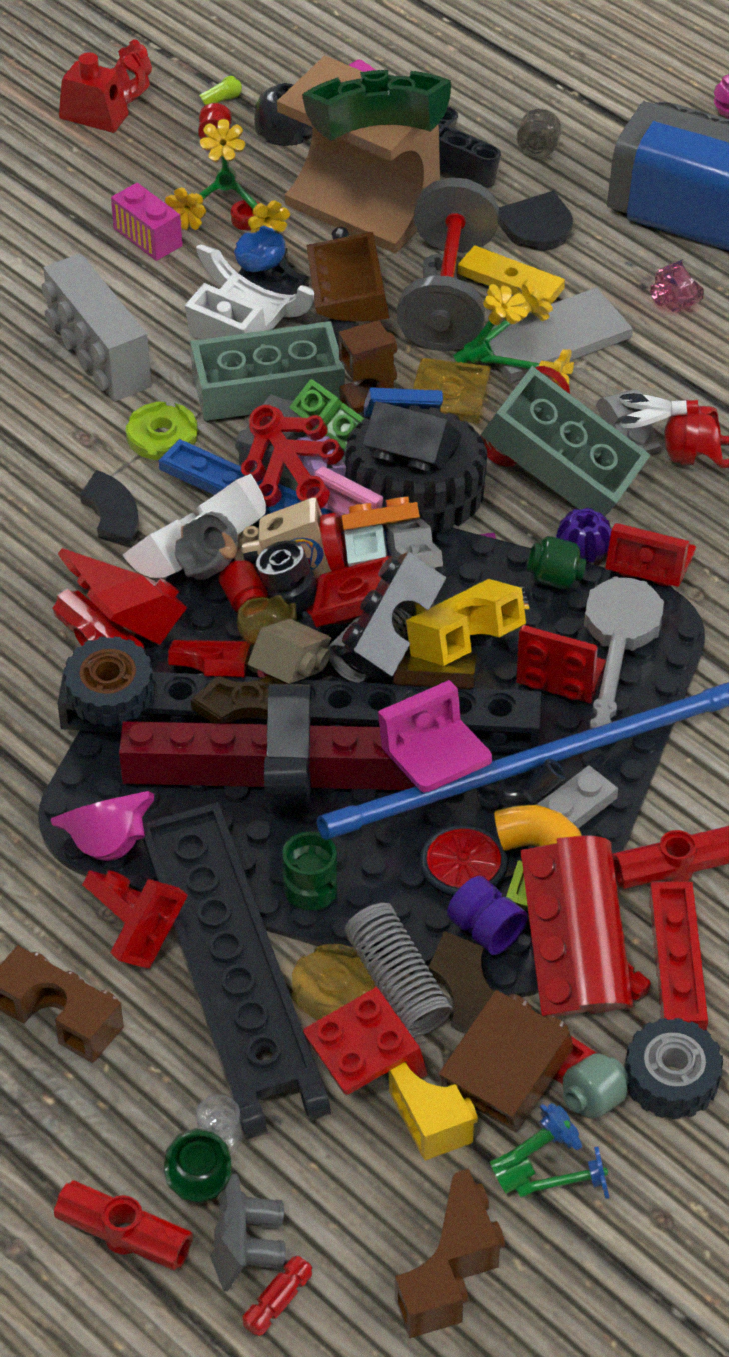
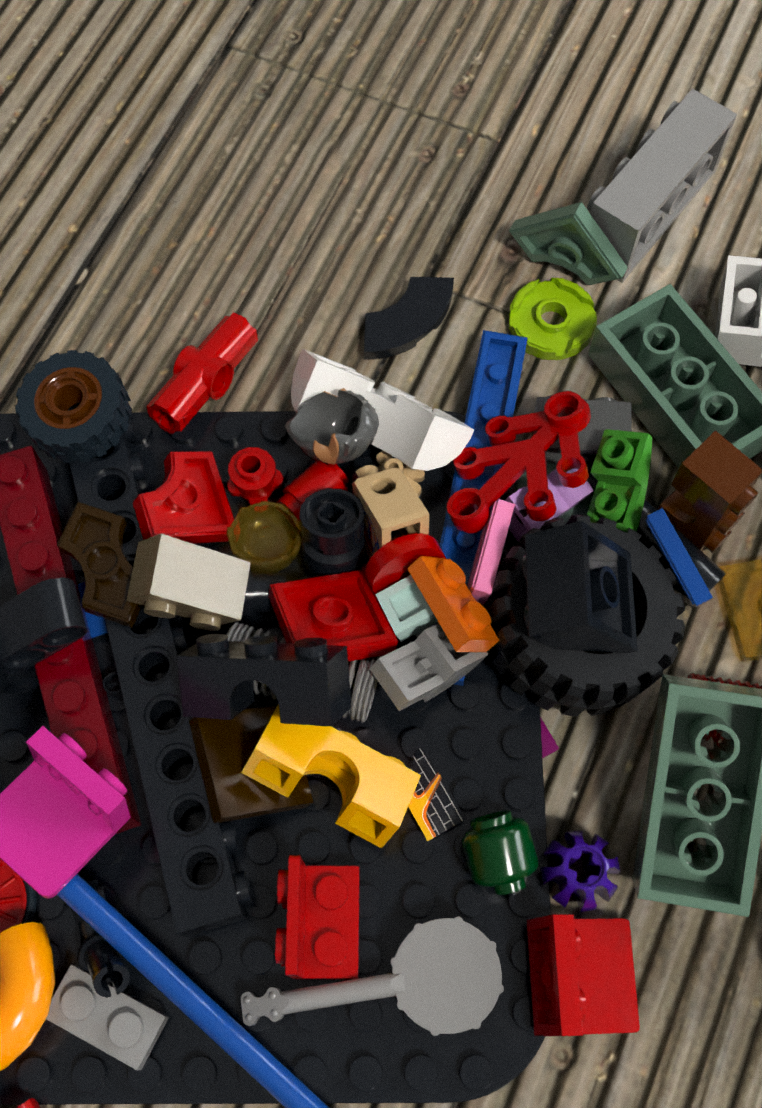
camera: 70 degrees right, 20 degrees up
(114, 387) = (571, 240): none -> sand green tile
(126, 596) = (243, 368): red wedge -> none
(208, 619) = (253, 486): none -> red brick

